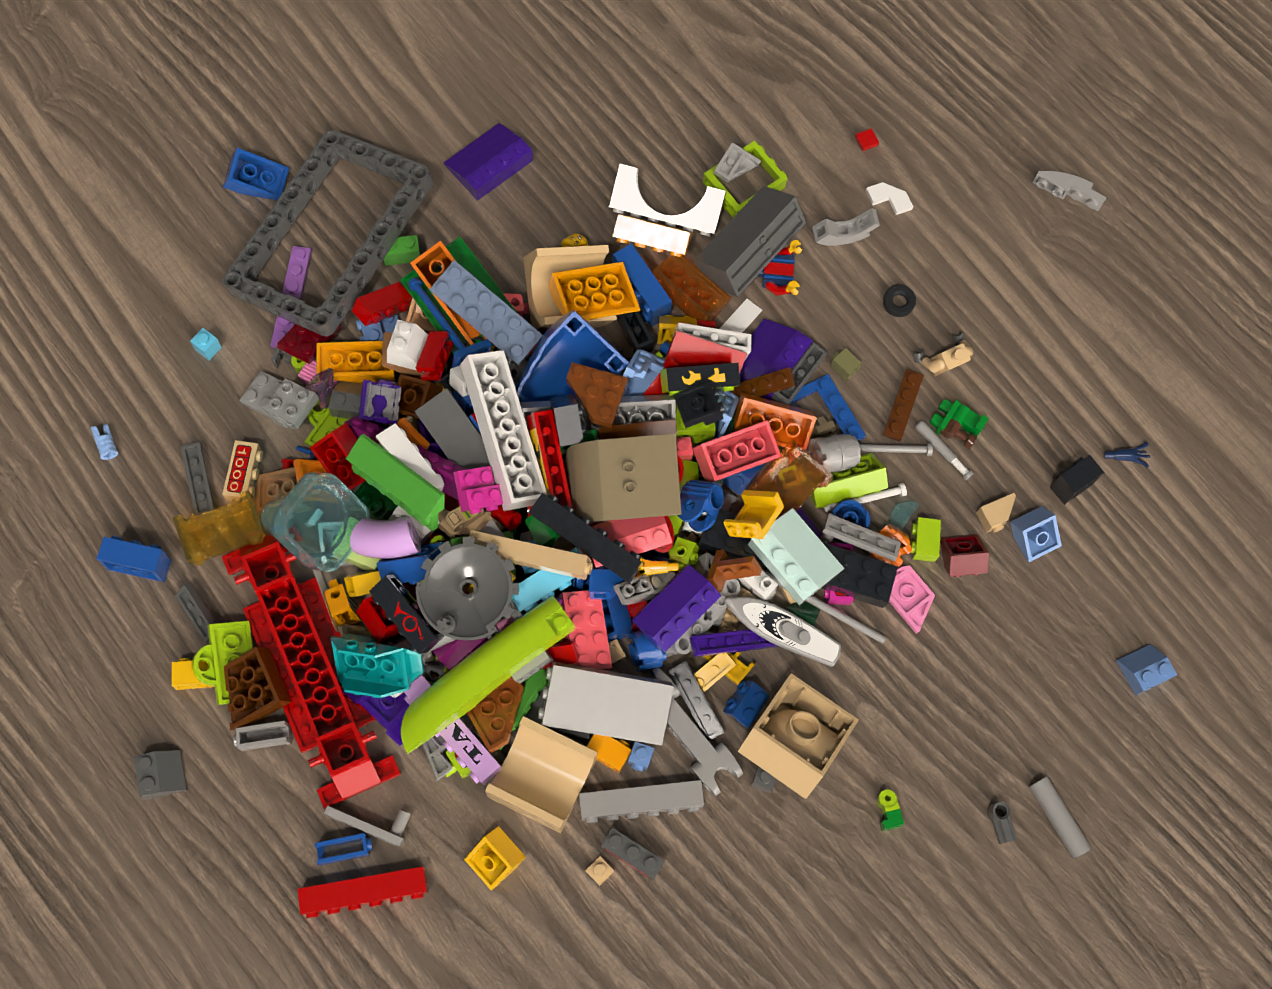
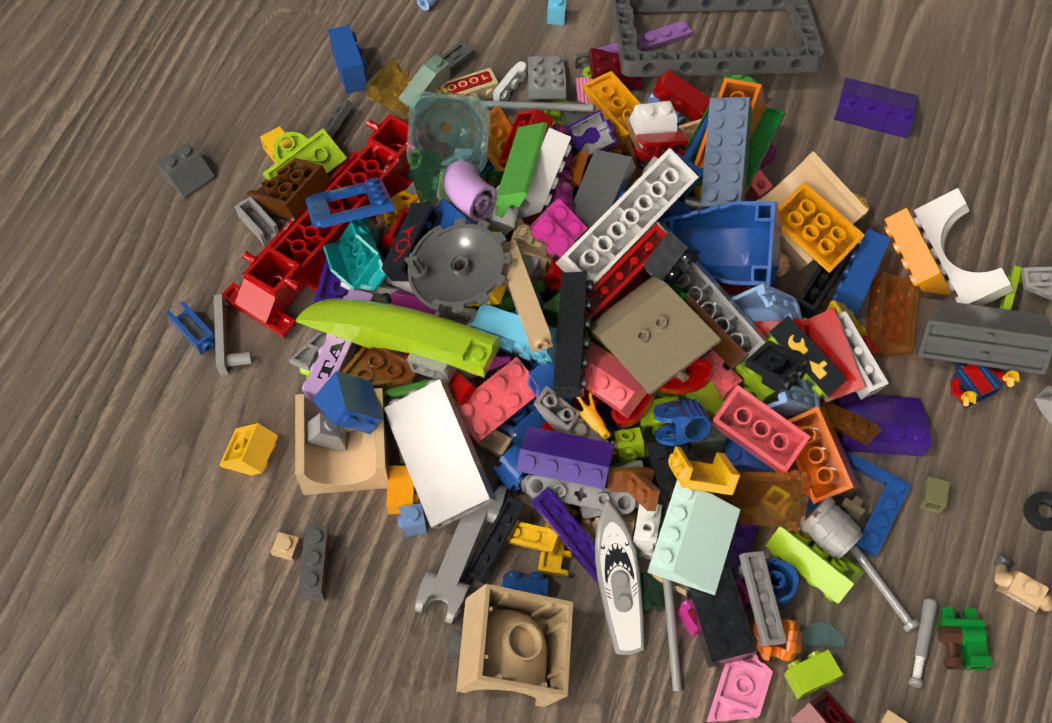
camera: 65 degrees right, 10 degrees down
(217, 506) = (428, 78): none -> sand green slope
(259, 432) = (510, 82): none -> white hinge
(311, 427) = (542, 106): none -> light grey piece
(323, 385) = (577, 90): slope -> none
(323, 674) = (375, 190): none -> blue hinge
(350, 564) = (425, 173): none -> clear green slope
(362, 891) = (165, 364): red brick -> none
(525, 750) = (349, 402): none -> blue slope
(531, 785) = (324, 433): none -> light grey slope
(597, 392) = (720, 274): dark orange plate -> none
(641, 800) = (372, 545): light grey brick -> none
(742, 317) = (906, 380): white sticker -> none
(801, 373) = (889, 455): dark grey brick -> none
(901, 489) = (826, 603): white bar -> none
(903, 405) = (938, 575): reddish brown plate -> none

